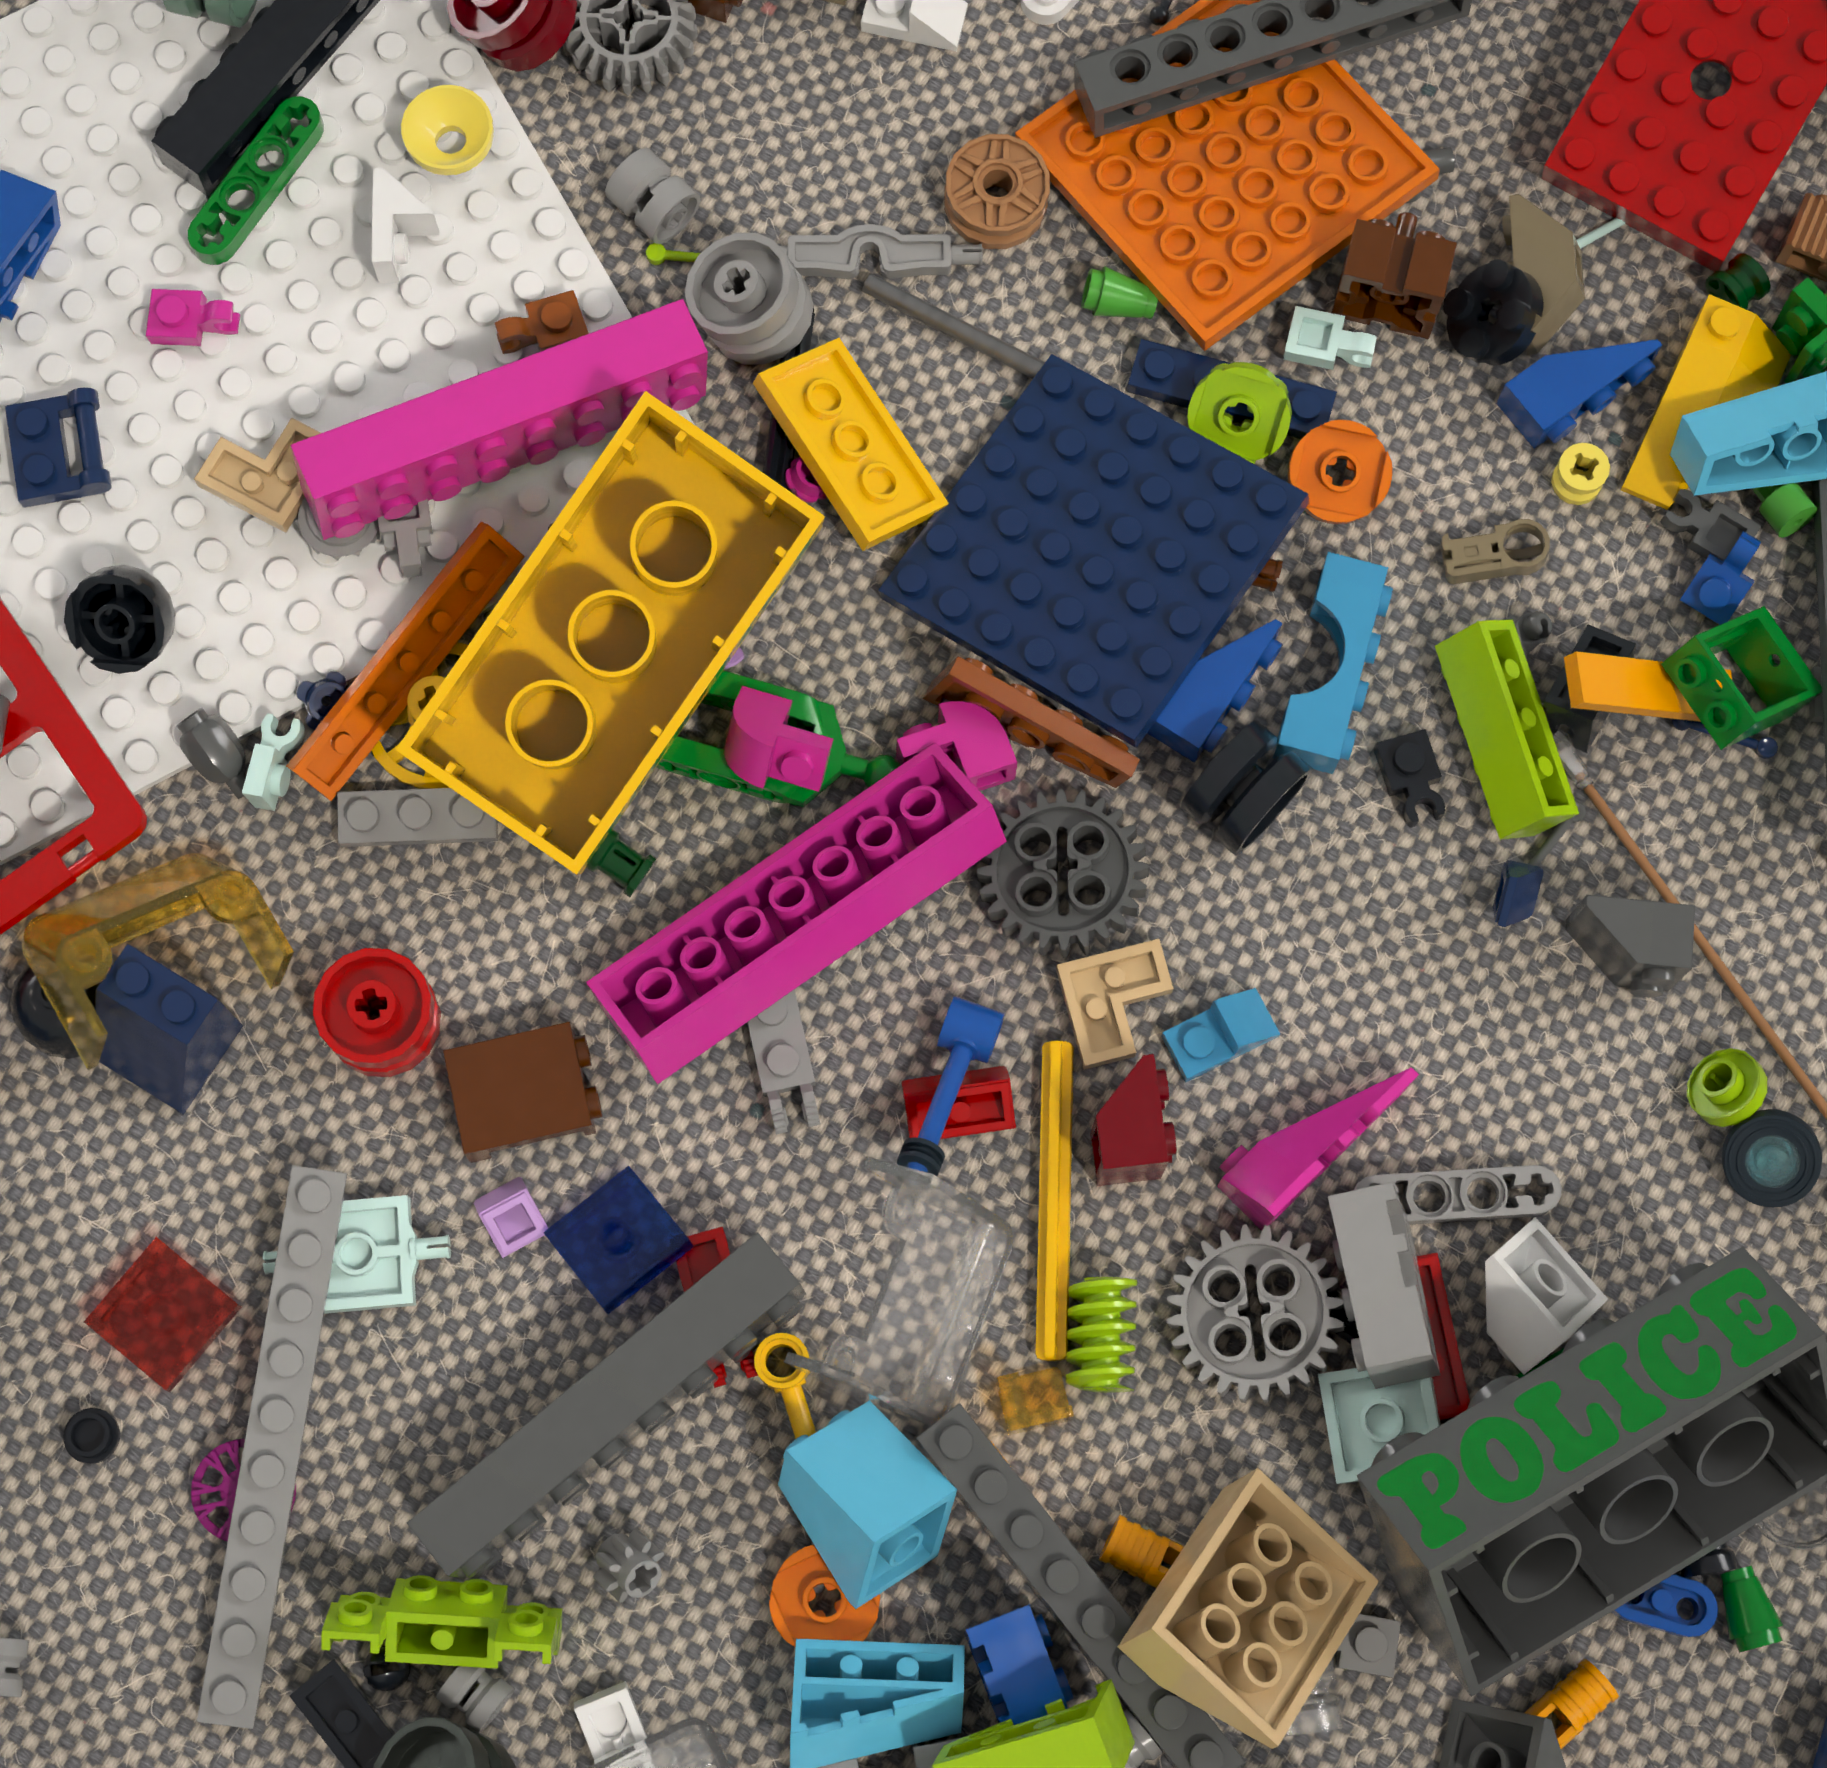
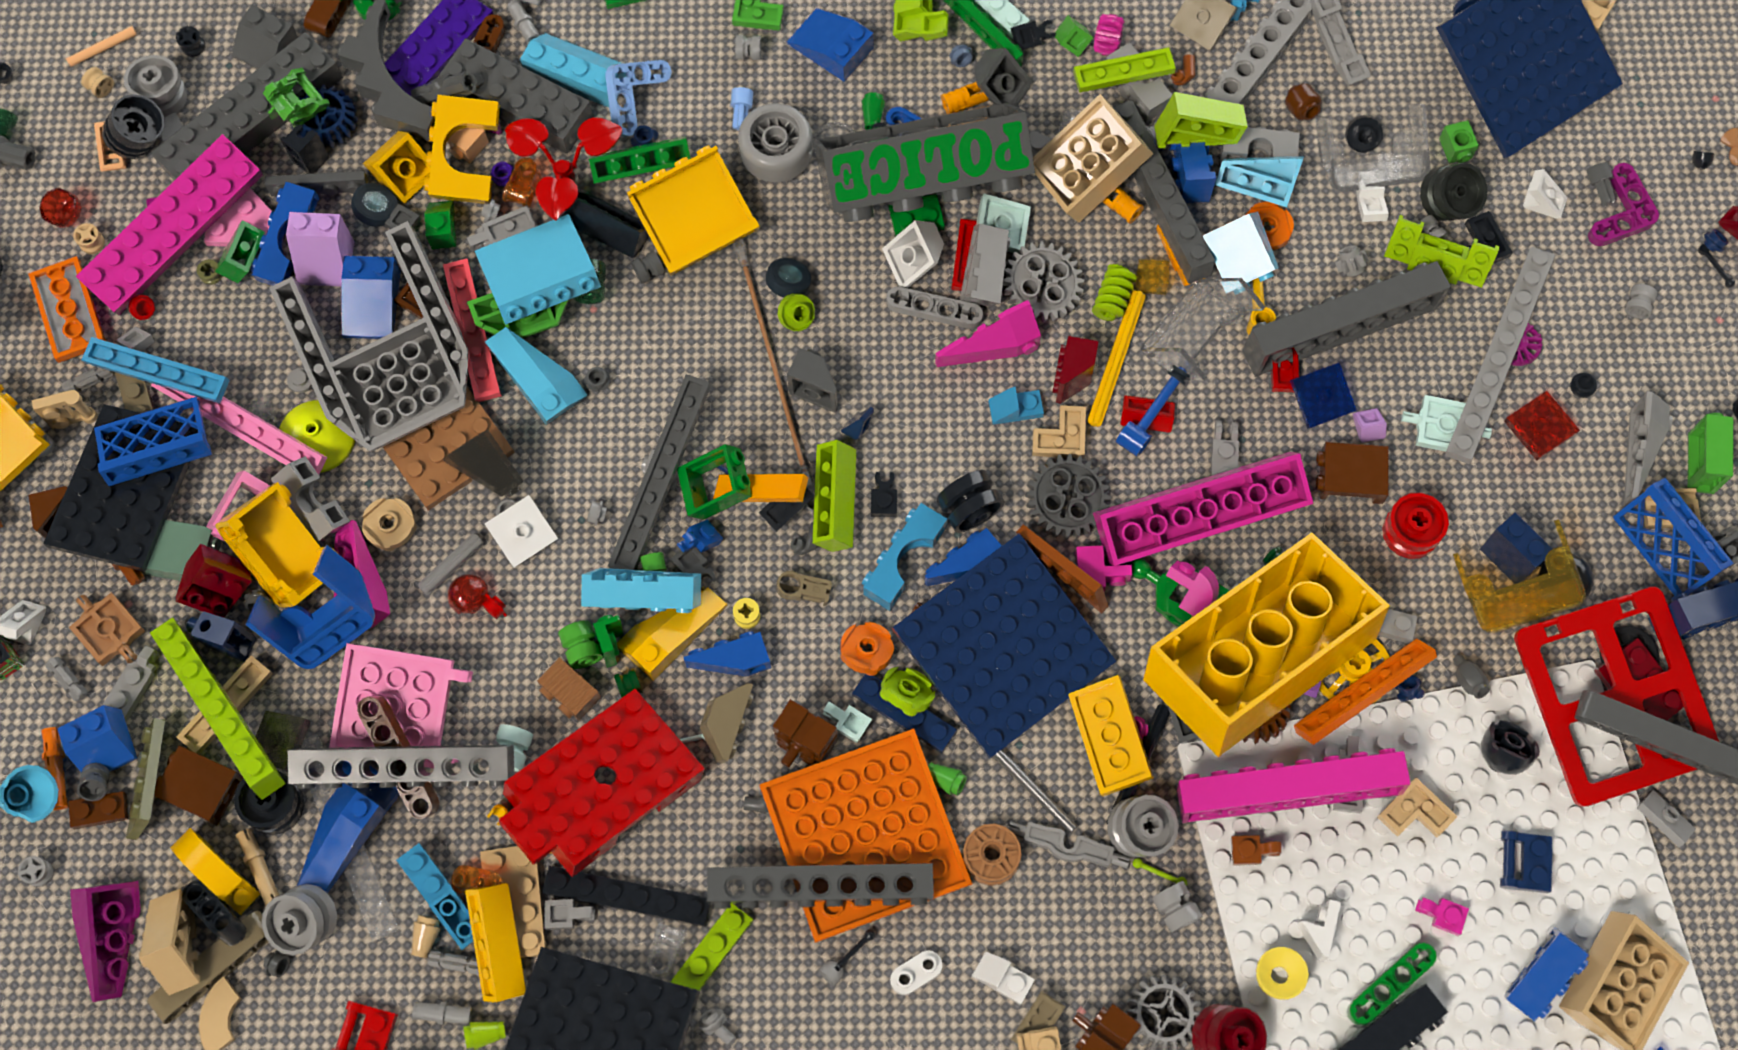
camera: 160 degrees left, 5 degrees down
(267, 771) = (1446, 657): light aqua plate -> none
(1470, 305) = (773, 701): black plate -> none

